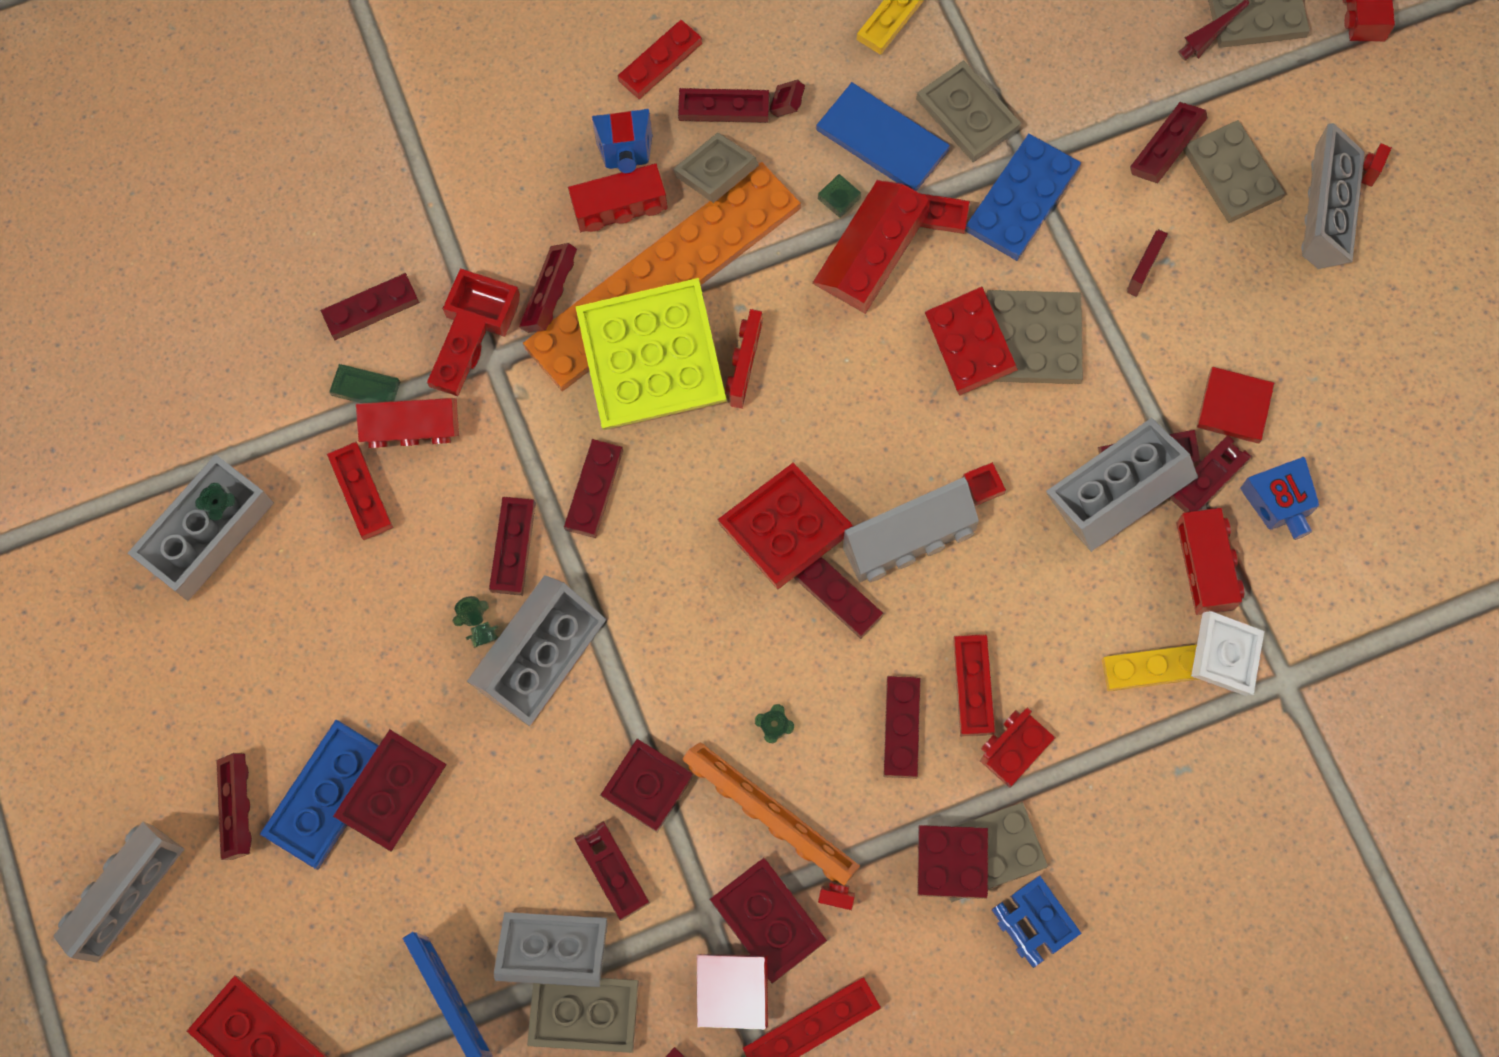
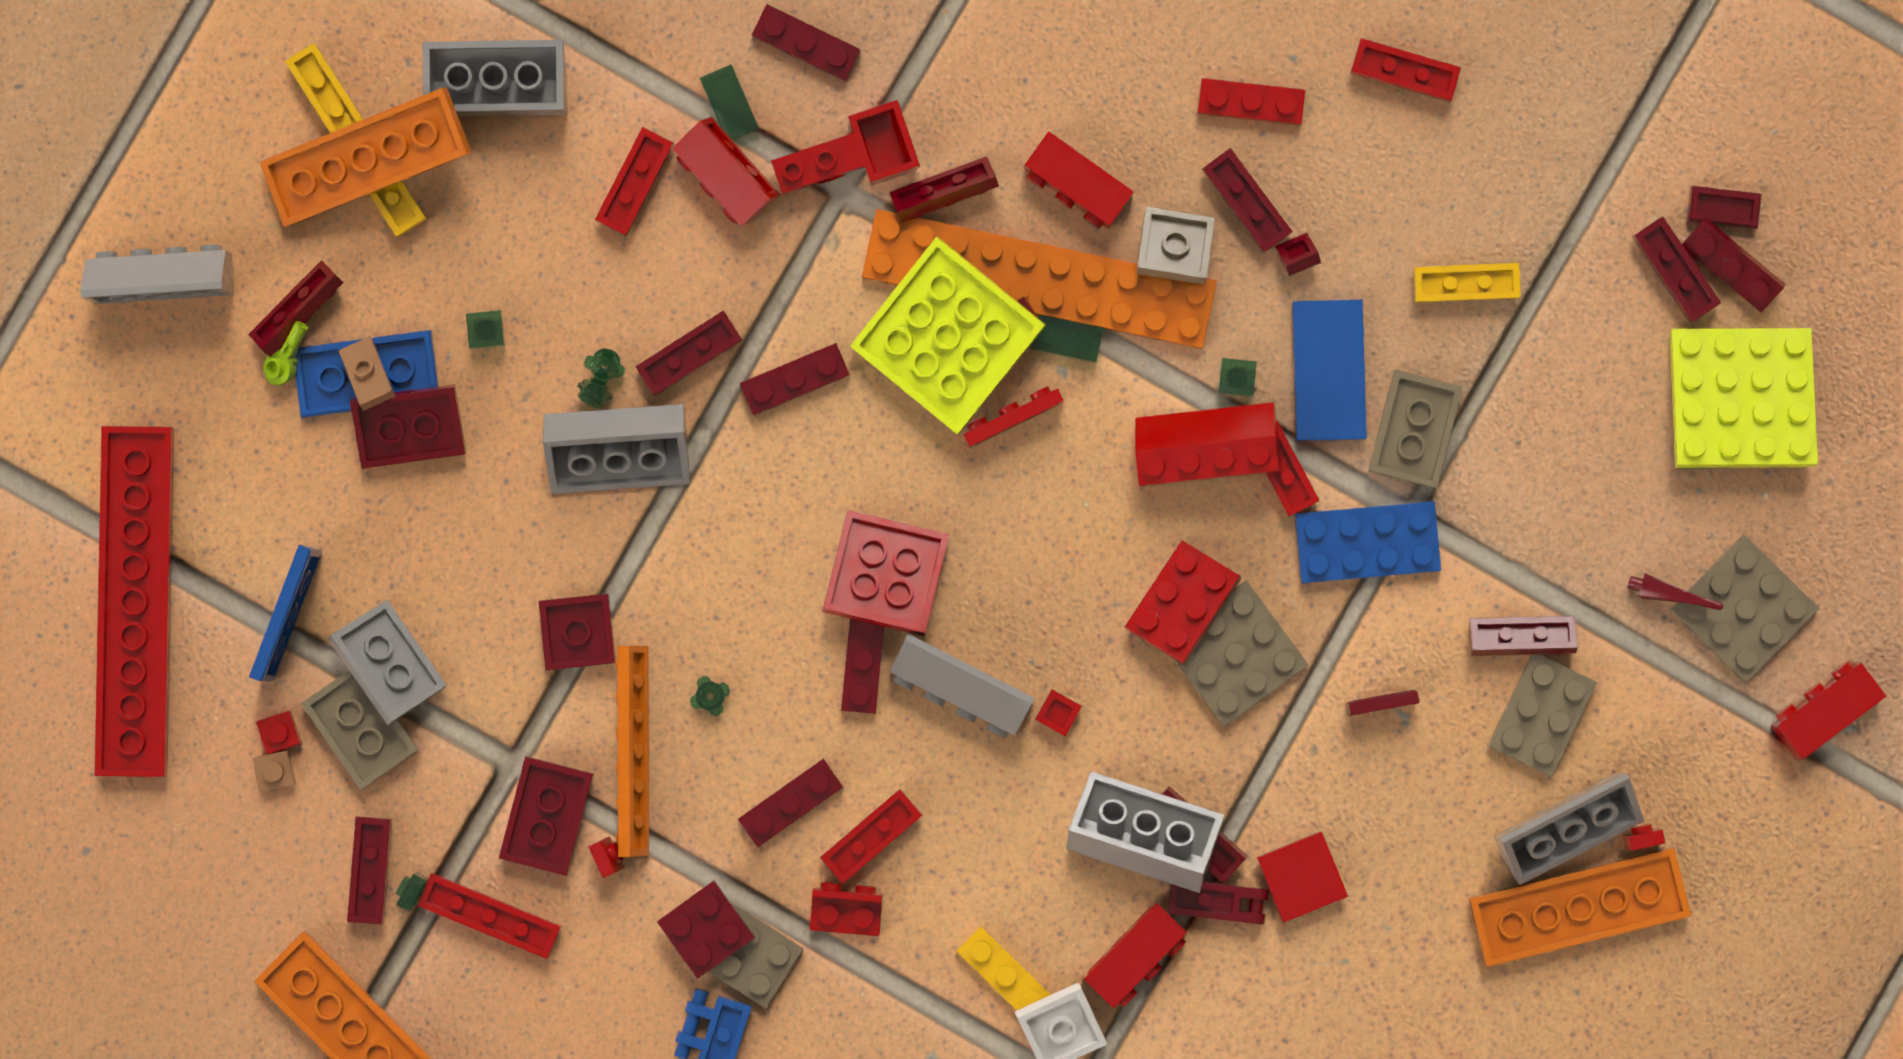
camera: 50 degrees right, 15 degrees up
(155, 664) = (338, 112): none -> yellow plate
(169, 661) = (365, 157): none -> orange plate
(212, 492) = (514, 71): clear green plate -> none
(264, 851) = (281, 366): none -> lime plate
(324, 786) = (366, 373): none -> medium nougat plate
(370, 678) = (485, 329): none -> clear green plate
(612, 872) = (486, 659): dark red plate -> none
(624, 139) = (1137, 142): blue torso -> none
(724, 284) = (1068, 339): none -> clear green plate
(732, 991) = (467, 831): tile -> none
(1283, 496) = (1244, 978): blue torso -> none
(1394, 240) = (1579, 907): none -> orange plate

